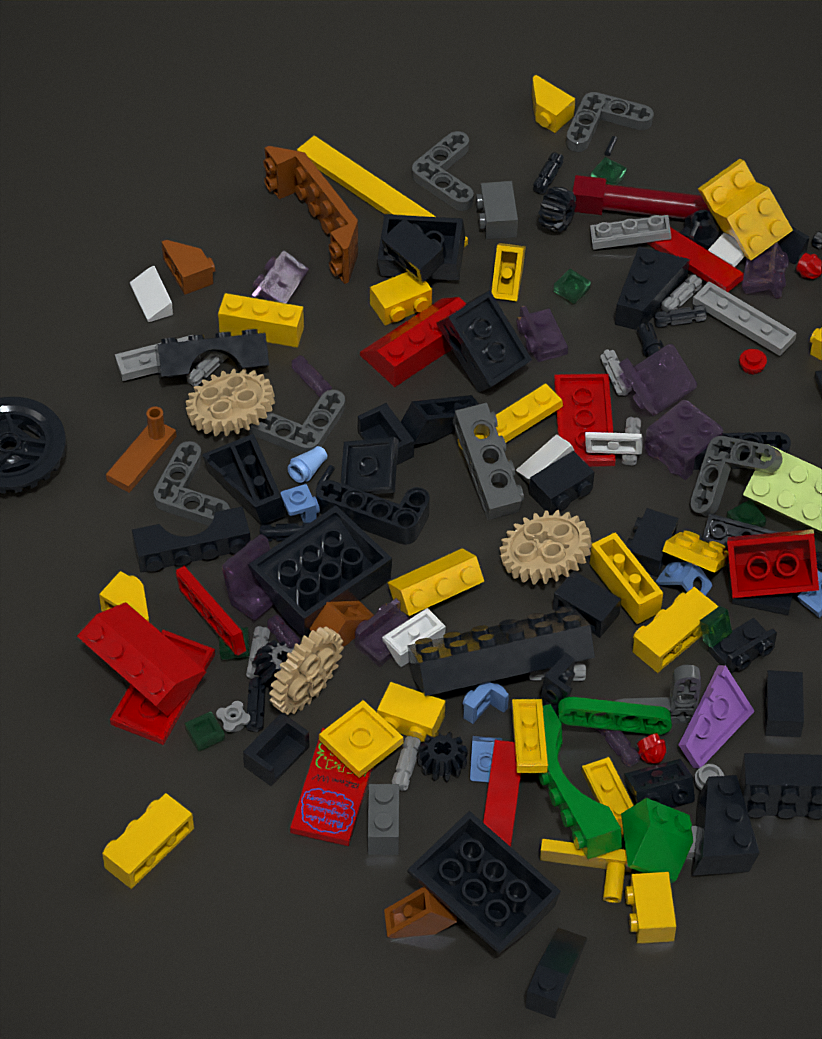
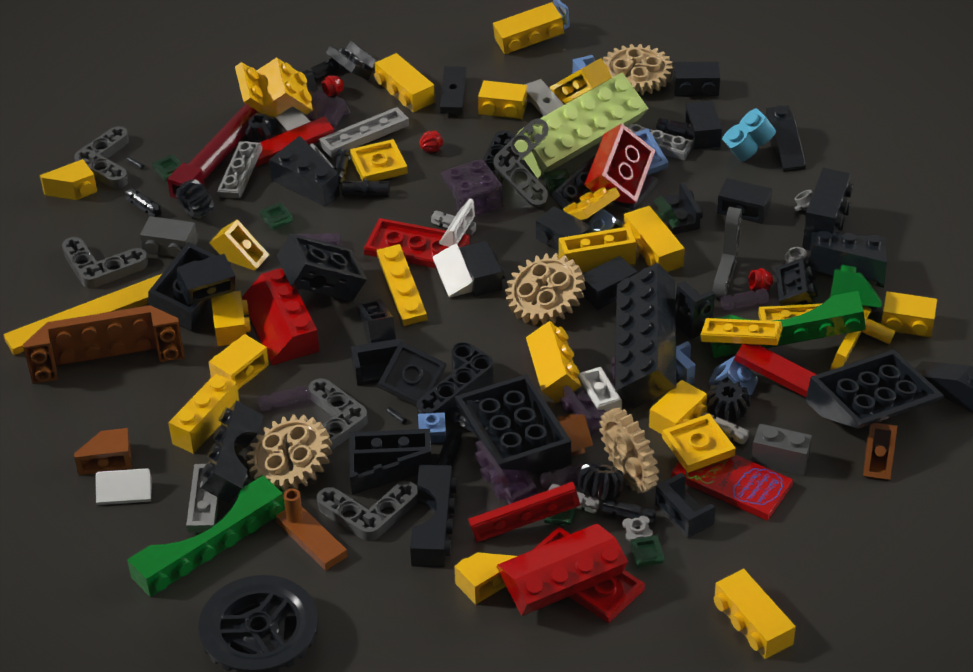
camera: 70 degrees left, 10 degrees down
(61, 353) = (165, 563): none -> green arch
(280, 279) = (159, 394): clear purple bracket -> none
(305, 465) = (382, 418): light blue cone -> none
(340, 325) = (240, 360): none -> yellow brick
(495, 501) = (444, 300): dark grey brick -> none
(612, 368) = (374, 214): light grey axle -> none
(647, 718) = (731, 286): green beam -> none
(658, 379) = (407, 186): clear purple bracket -> none
(701, 345) = (379, 161): none -> yellow plate
(716, 718) = (752, 241): medium lavender wing -> none
(753, 361) = (408, 139): red plate -> none
(753, 382) = (431, 141): none -> red plate

